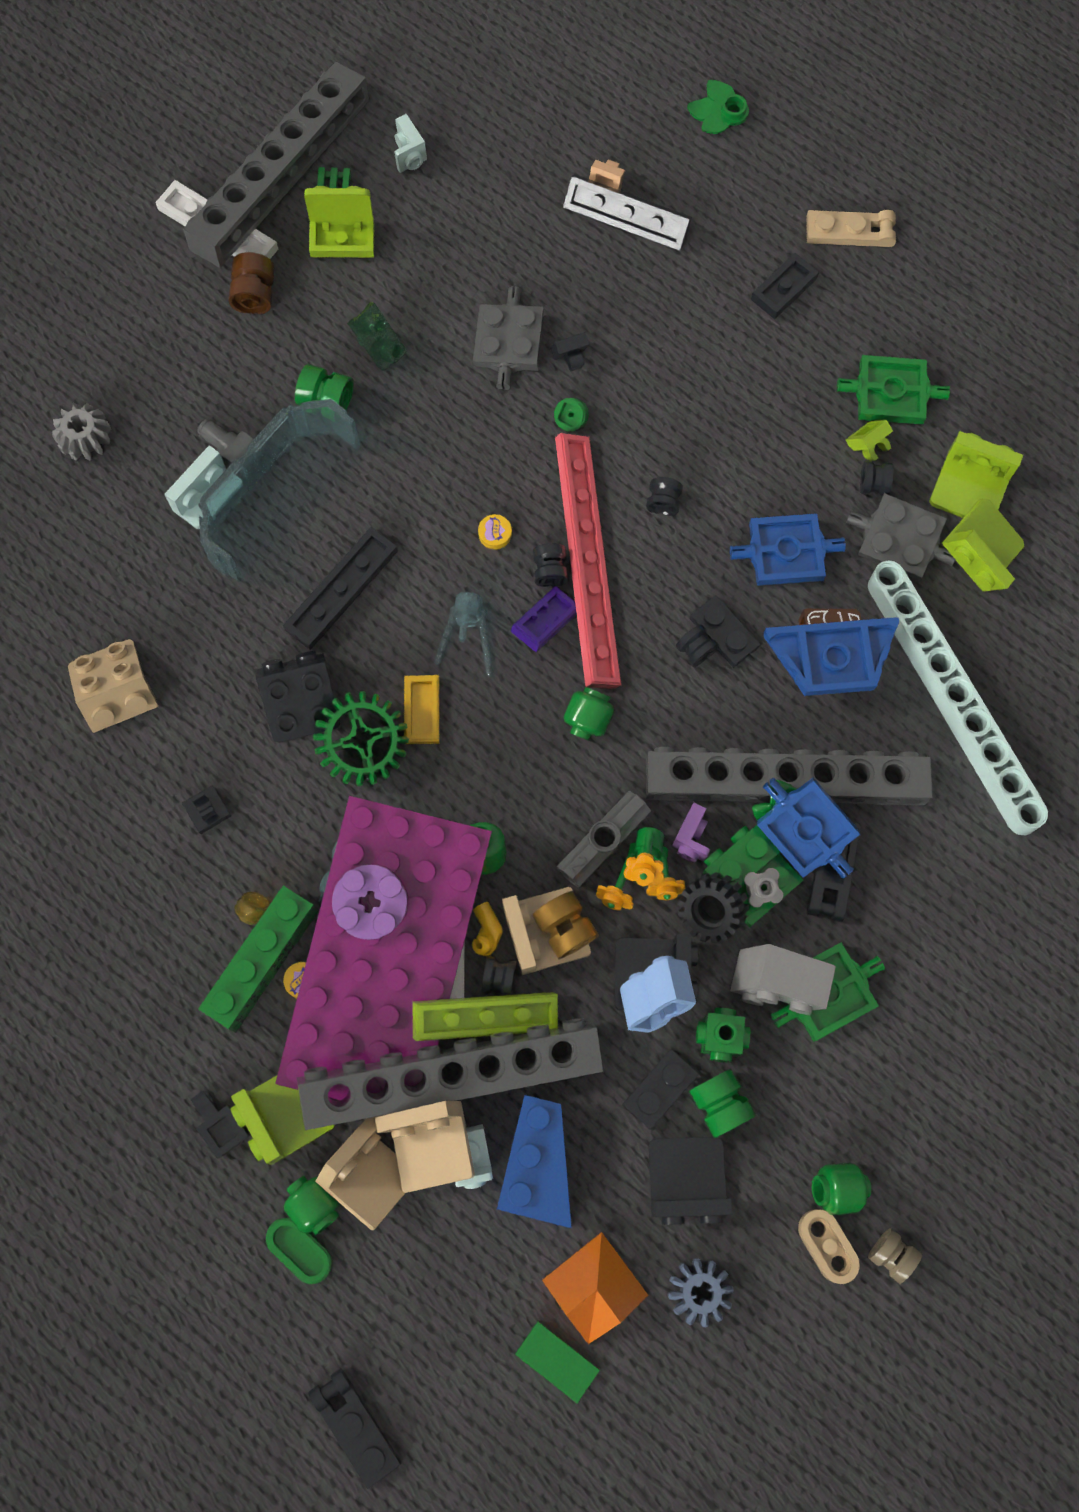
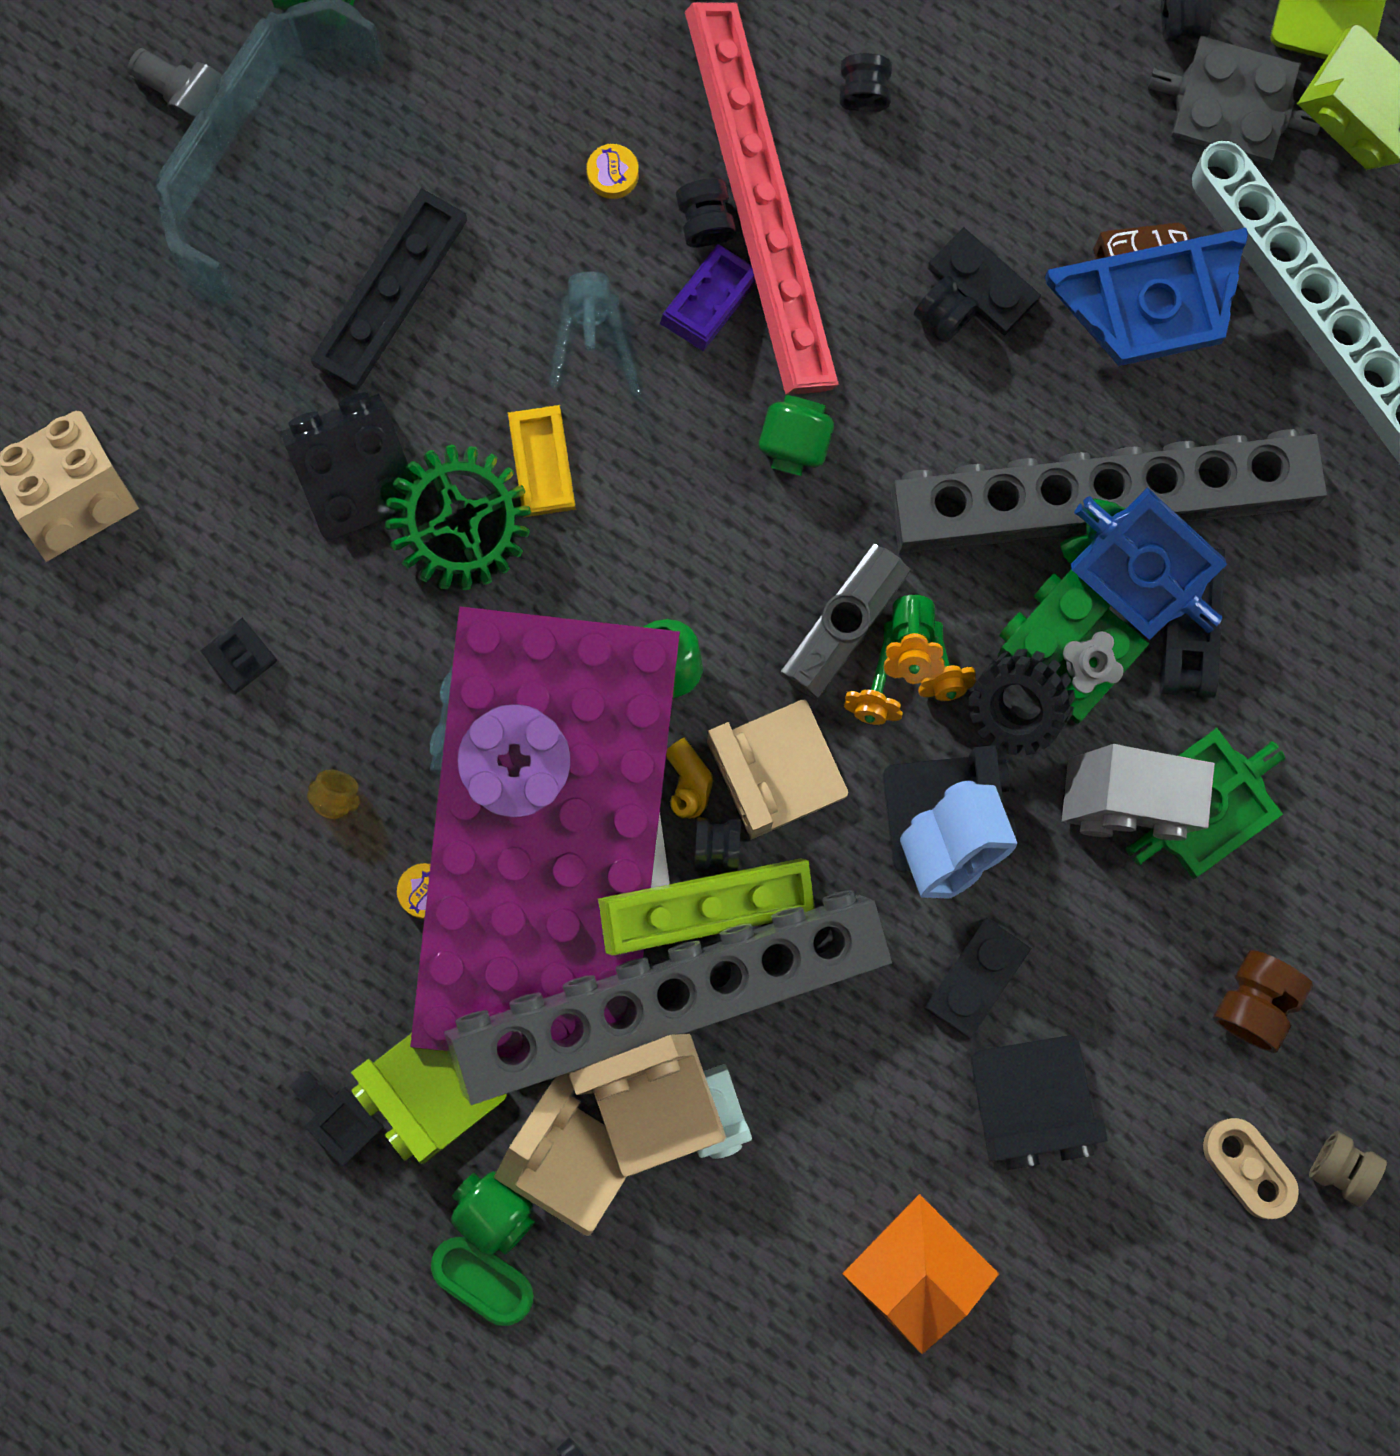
camera: 10 degrees left, 5 degrees up
(193, 483) = (135, 164): light aqua bracket -> none
(258, 959) = (356, 867): green brick -> none
(536, 1168) = (814, 1112): blue wedge -> none
(557, 1362) = (880, 1384): green tile -> none
(559, 913) = (793, 743): pearl gold wheel -> none
(692, 828) = (974, 587): medium lavender bracket -> none
(705, 1305) = (1082, 1276): sand blue gear -> none
(712, 1044) = (1043, 897): green brick -> none
(722, 1103) = (1072, 985): green wheel -> none
(787, 549) = (1063, 142): blue plate -> none
(841, 1188) = (1259, 1084): green head -> none
(850, 1131) = (1263, 1001): none -> reddish brown wheel

